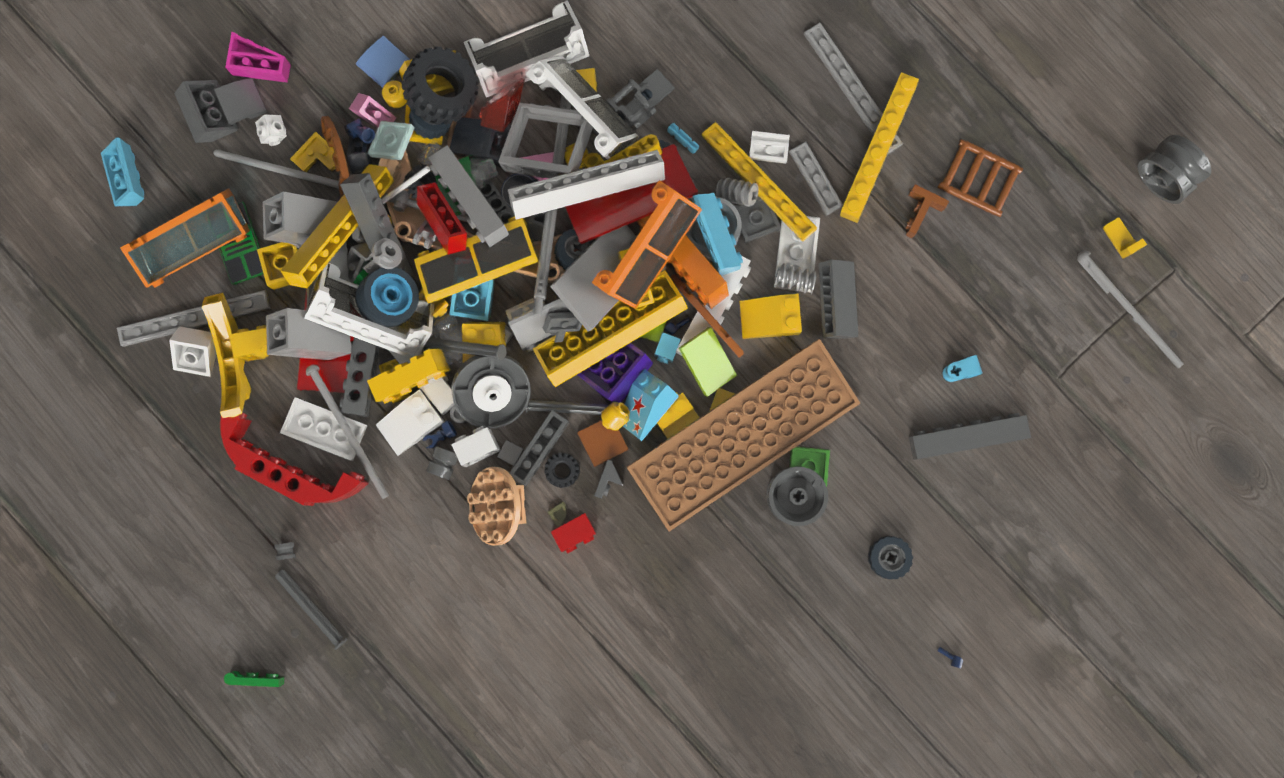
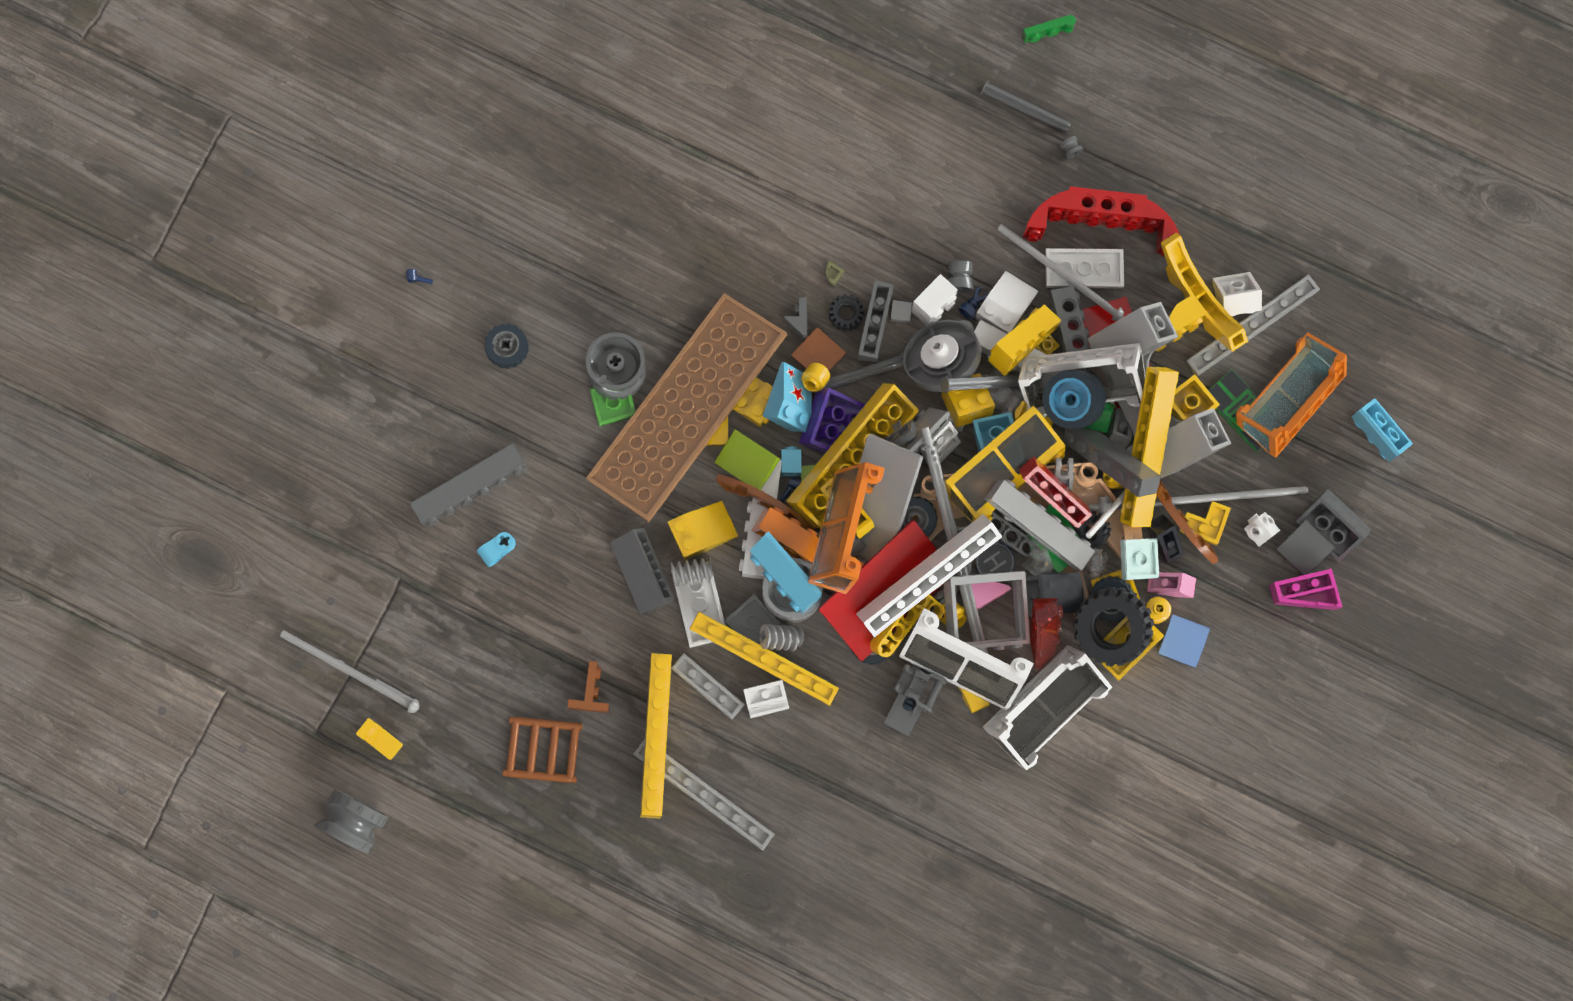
camera: 155 degrees right, 5 degrees down
(356, 130) = (1178, 560): dark blue leg -> none
(384, 255) = (1099, 436): light grey piece -> none
(497, 506) = (892, 254): light nougat bracket -> none
(574, 532) = (812, 259): red brick -> none
(683, 138) = (855, 676): medium azure axle -> none

